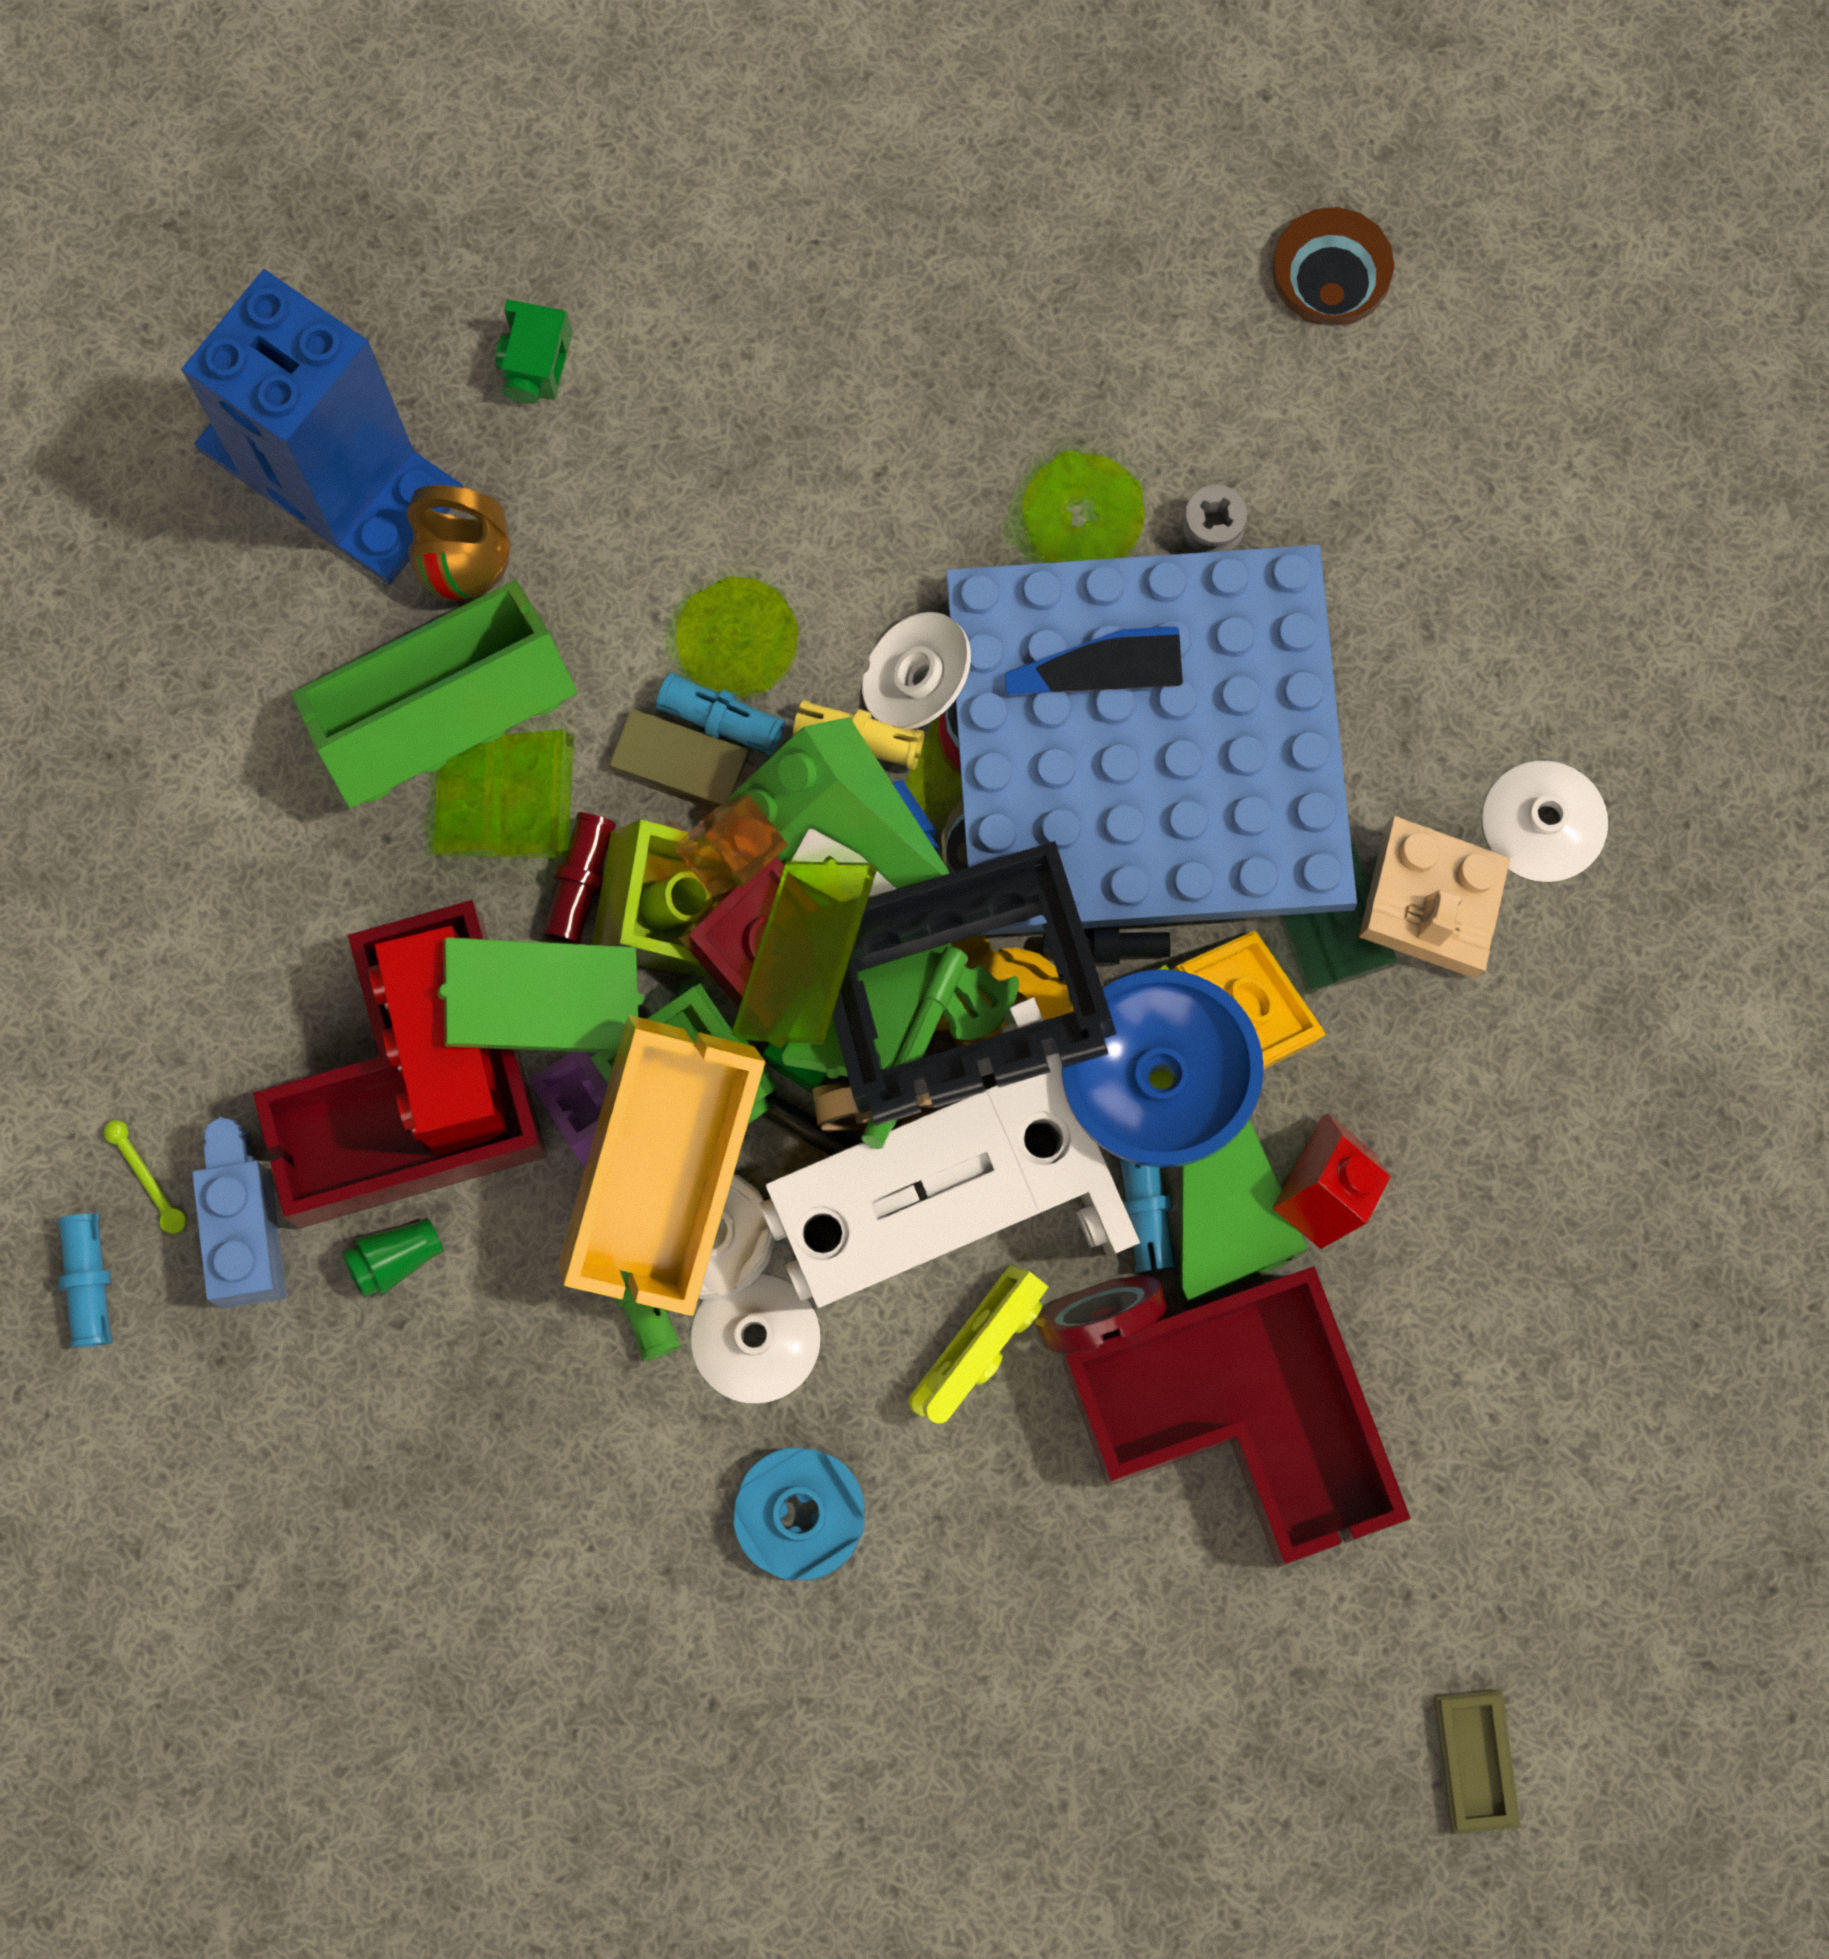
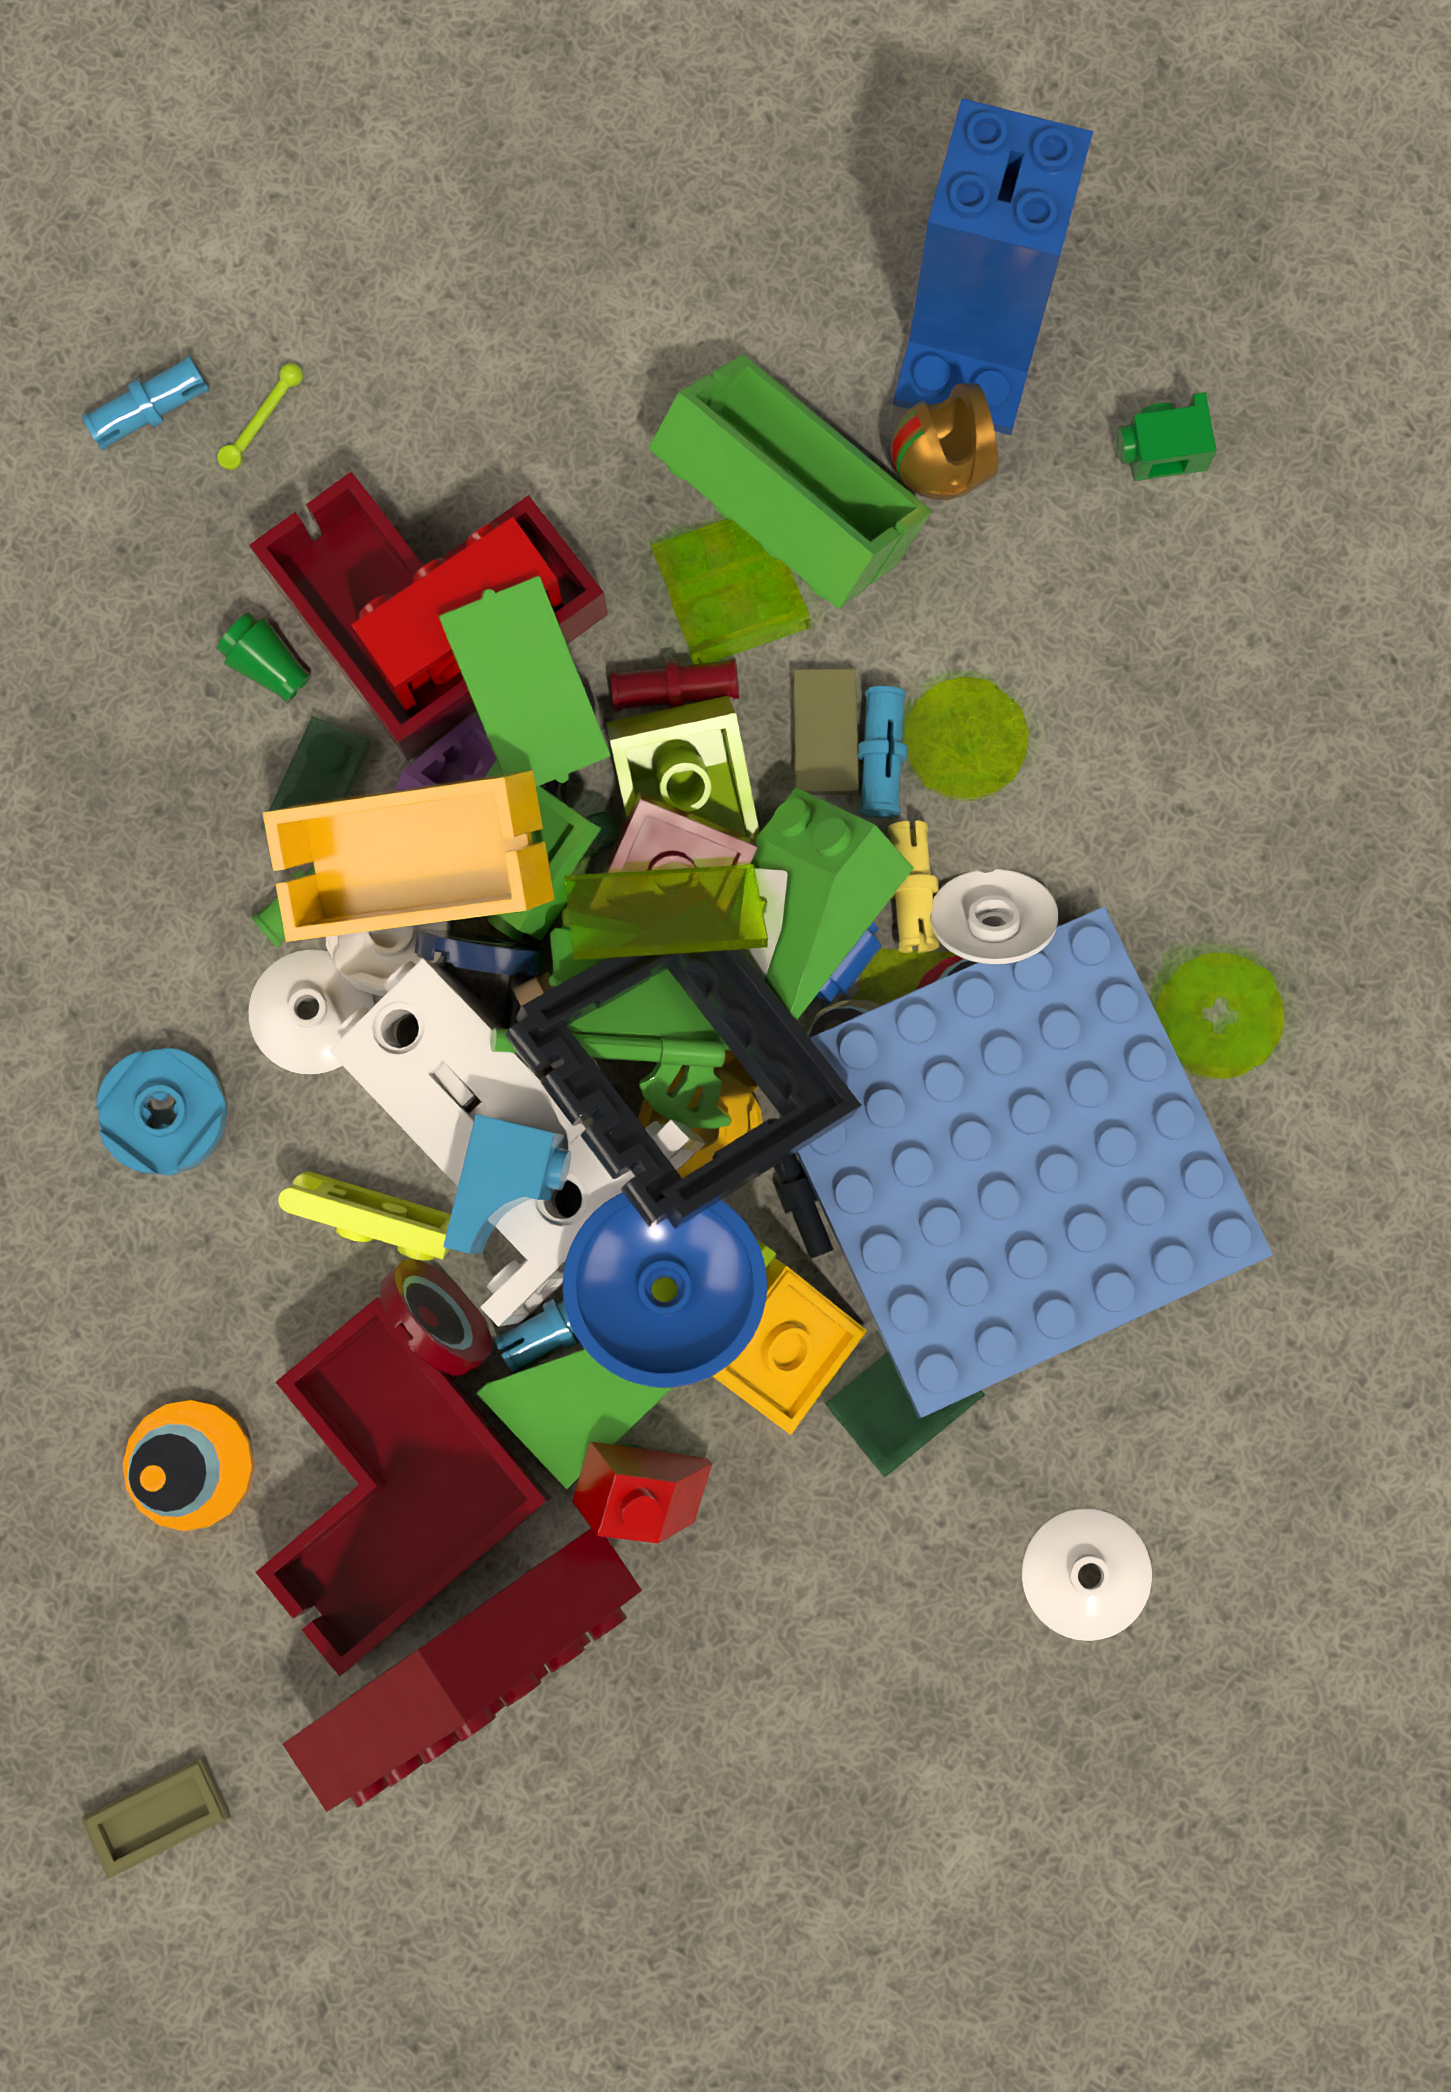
camera: 70 degrees right, 5 degrees up
(237, 1220) = (230, 511): medium blue hinge -> none
(528, 1248) = (321, 766): none -> clear green plate
(730, 845) = (743, 805): clear orange brick -> none
(771, 1142) = (480, 952): none -> dark blue tile
(1001, 1175) = (501, 1170): none -> dark azure arch
(1111, 662) = (1069, 1095): black sticker -> none
(1152, 1610) = (188, 1465): none -> tile
(1211, 533) = (1244, 1152): light grey wheel -> none
(1434, 897) = (962, 1492): tan hinge -> none
(1454, 1399) = (458, 1677): none -> dark red piece

